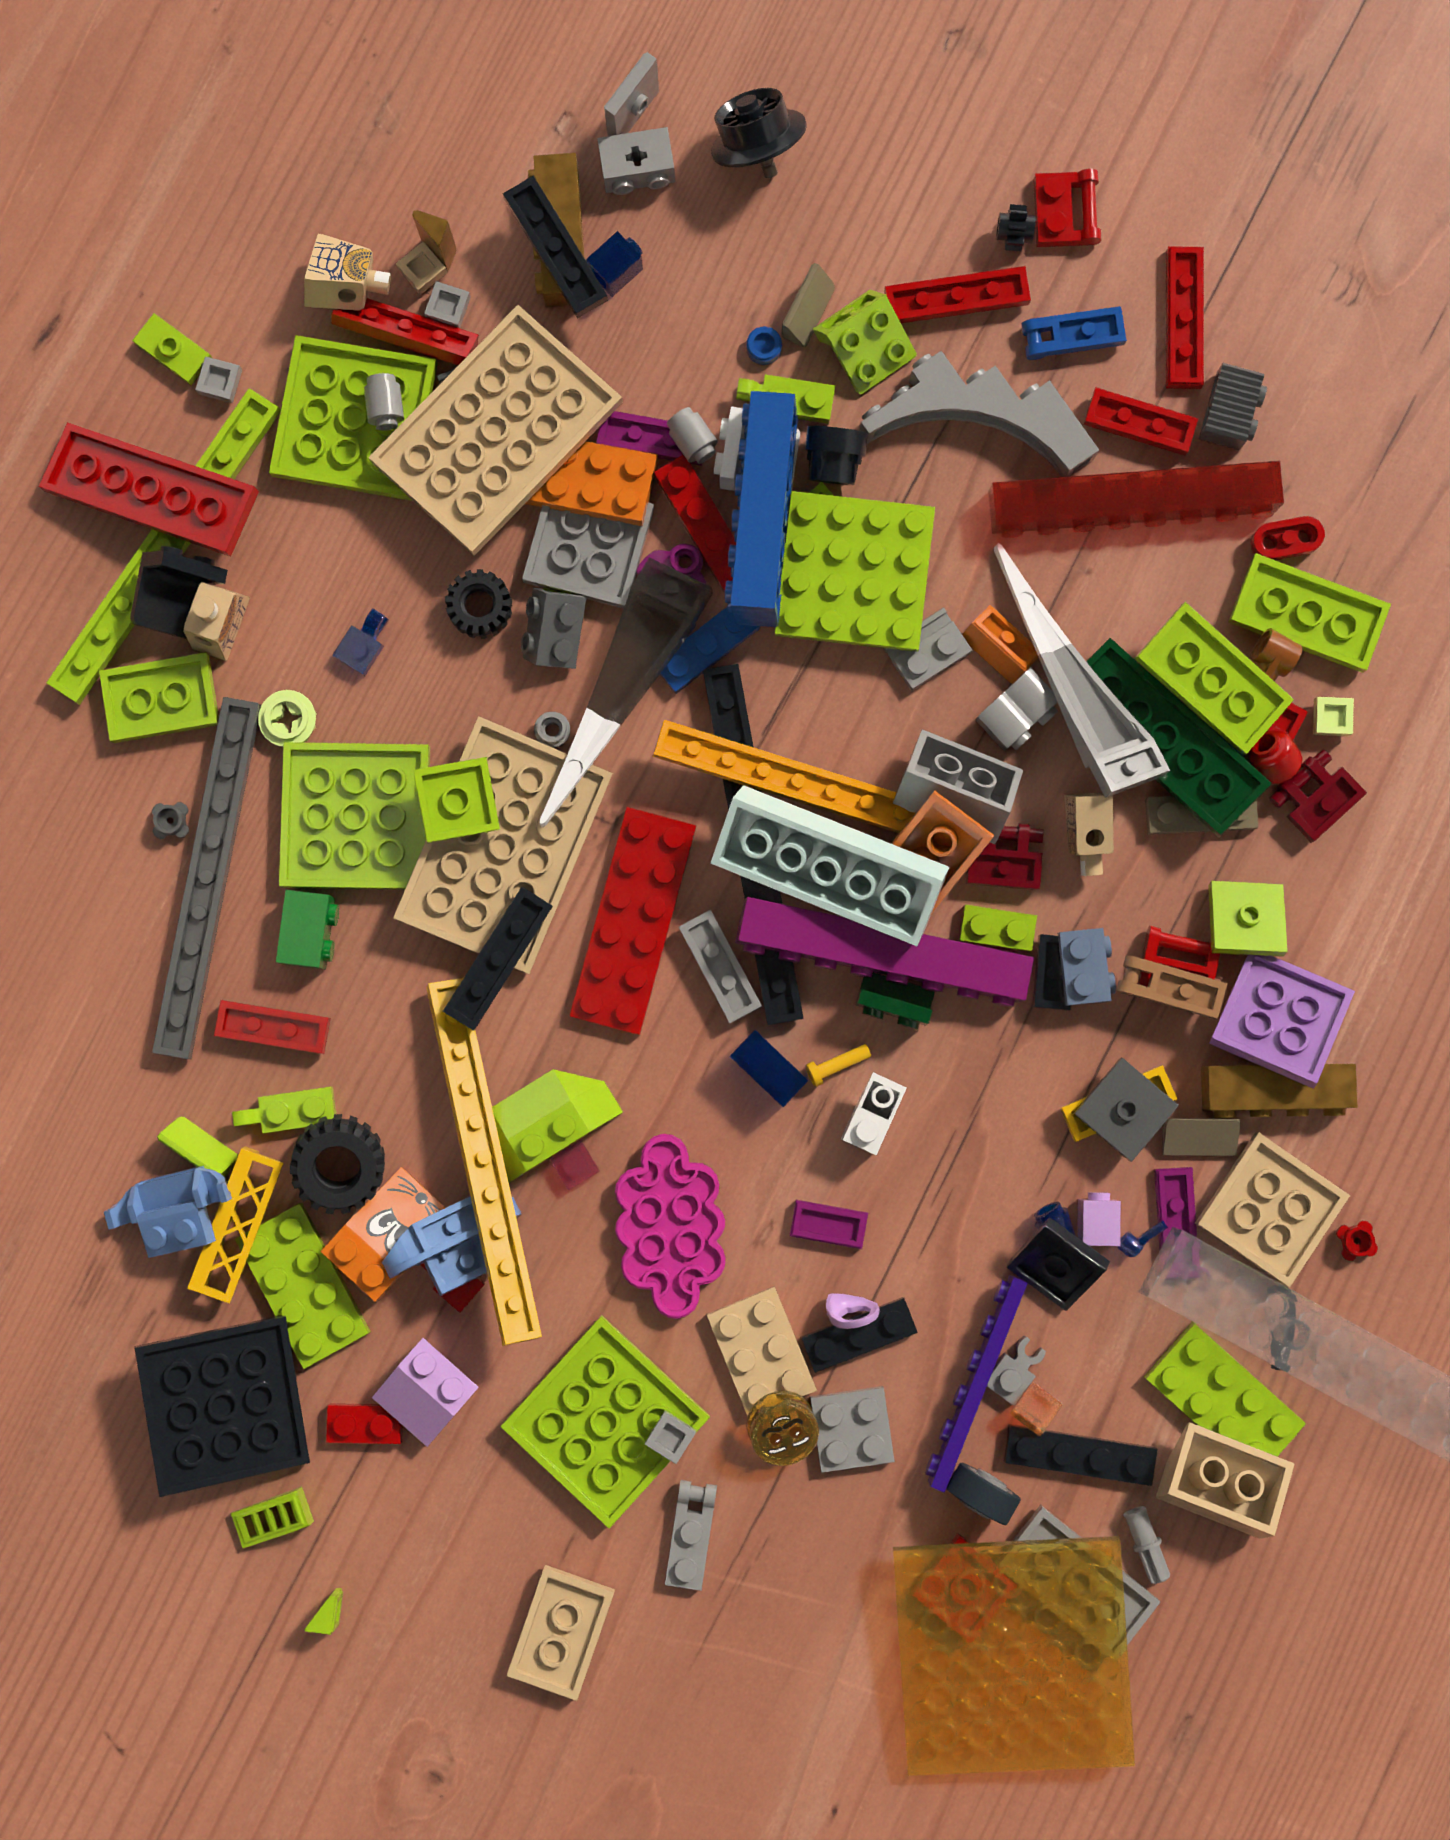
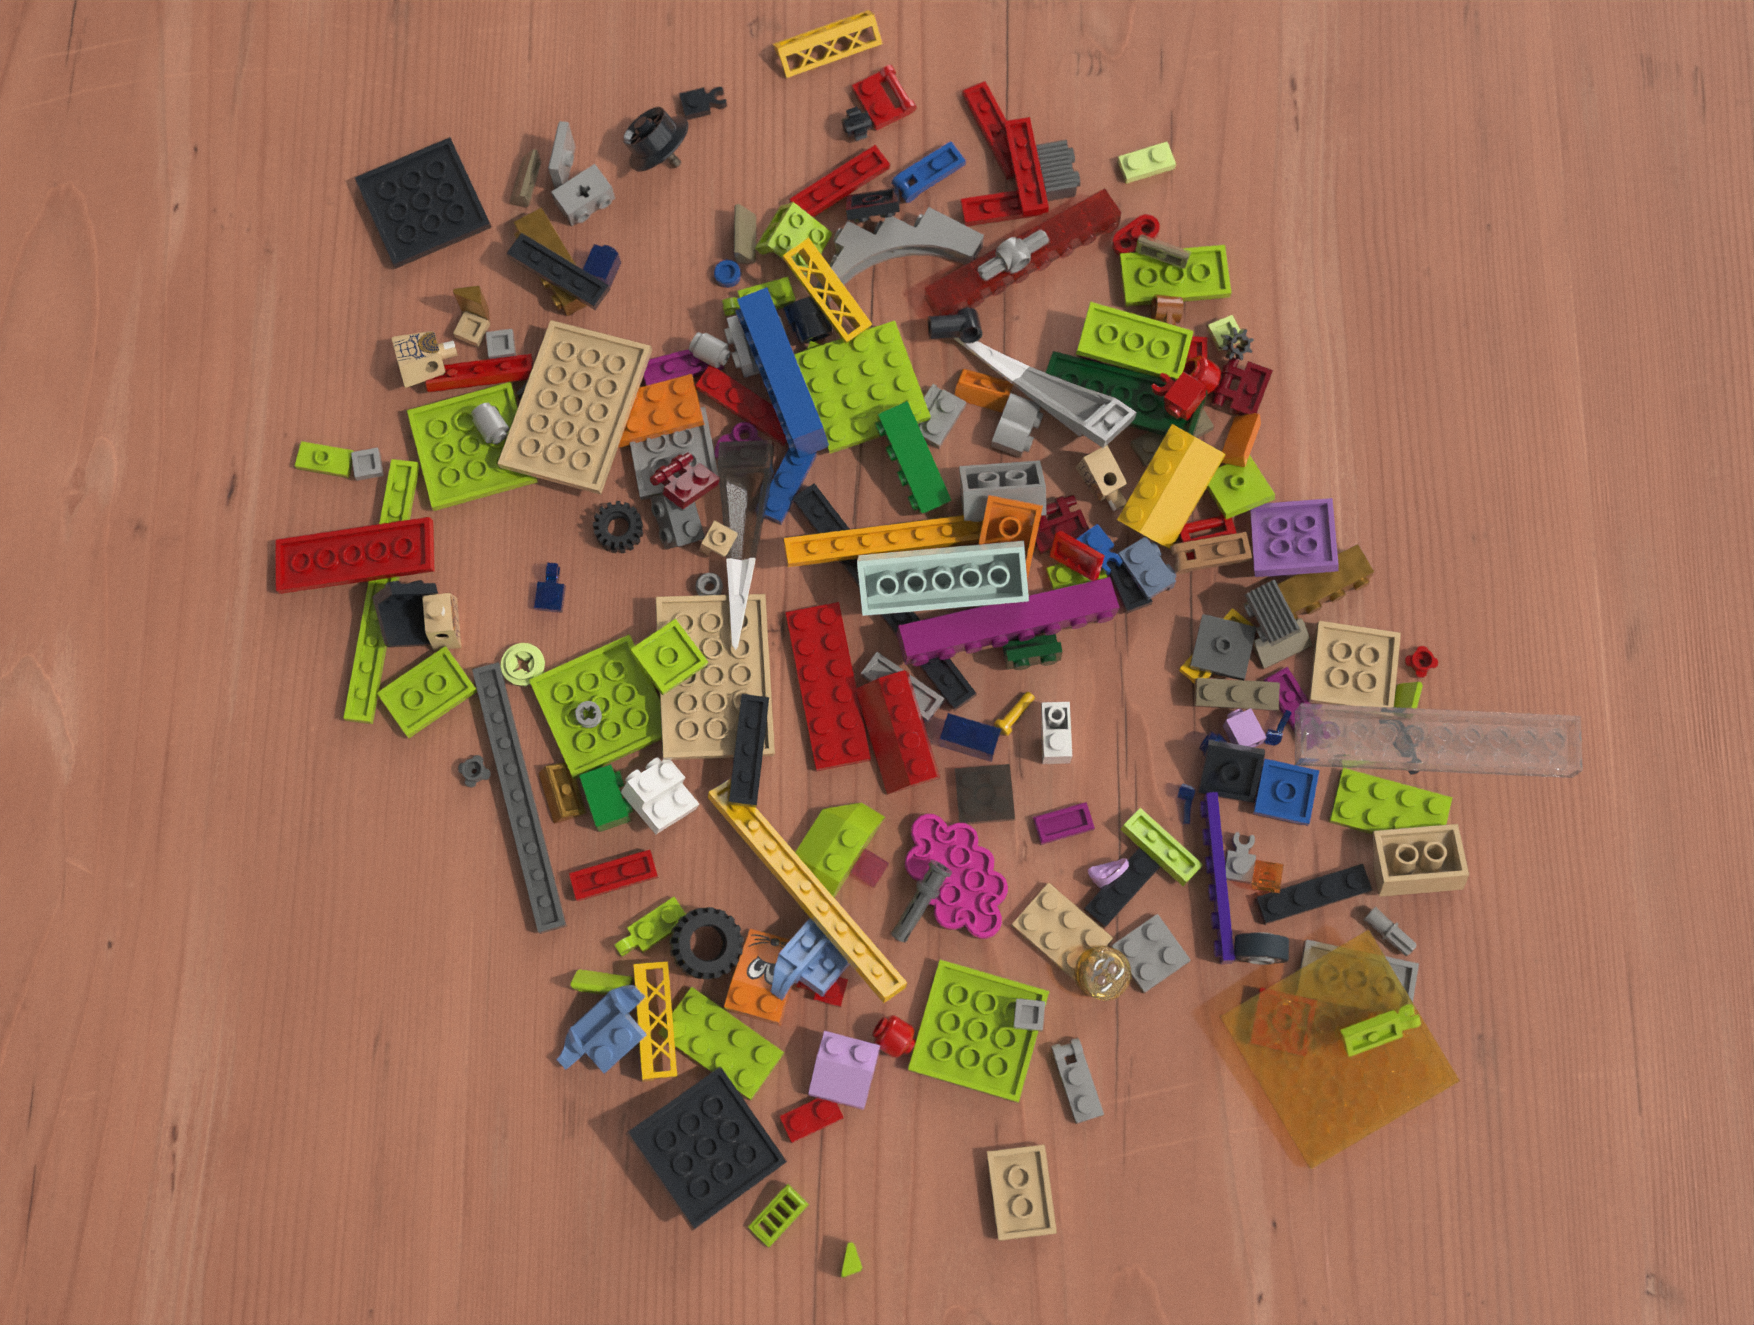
camera: 25 degrees left, 10 degrees down
(260, 897) = (561, 793): none -> pearl gold slope
(327, 830) = (589, 723): none -> light grey bush
(369, 958) = (659, 794): none -> white plate
(438, 76) = (423, 202): none -> black plate
(503, 1379) = (894, 1036): none -> red head
(577, 106) = (526, 179): none -> dark tan slope
(583, 598) = (690, 485): none -> dark red plate
(588, 680) = (718, 539): none -> tan bracket
(624, 1230) = (927, 890): none -> dark grey pin
(686, 1022) = (897, 732): none -> red slope
(753, 1143) = (984, 794): none -> clear smoke plate
(834, 105) = (698, 103): none -> black plate
(871, 693) = (913, 458): none -> green brick
(880, 427) = (832, 286): none -> yellow fence
(929, 1312) = (1161, 847): none -> lime plate
(982, 343) = (873, 203): none -> black plate
(993, 1261) = (1186, 793): none -> clear blue hand
(1007, 912) = (1076, 555): none -> red plate
(1016, 552) = (963, 325): none -> black piece
(1035, 90) = (826, 33): none -> yellow fence
(1038, 908) = (1101, 542): none -> blue plate
(1069, 1665) = (1378, 1030): none -> lime plate
(1111, 1319) = (1286, 792): none -> blue plate
(1113, 1173) = (1236, 694): none -> dark tan plate
(1121, 494) = (1013, 255): none -> light grey axle
(1165, 883) = (1171, 486): none -> yellow slope
(1196, 385) = (1026, 166): none -> red plate
(1204, 1101) = (1272, 613): none -> dark grey brick
(1236, 777) = (1182, 395): none -> red brick
(1281, 861) = (1241, 439): none -> orange slope
(1310, 576) = (1162, 251): none -> dark tan slope
(1317, 1276) = (1407, 695): none -> lime slope
(1344, 747) = (1241, 348): none -> black gear
(1349, 449) = (1146, 162): none -> yellowish green plate

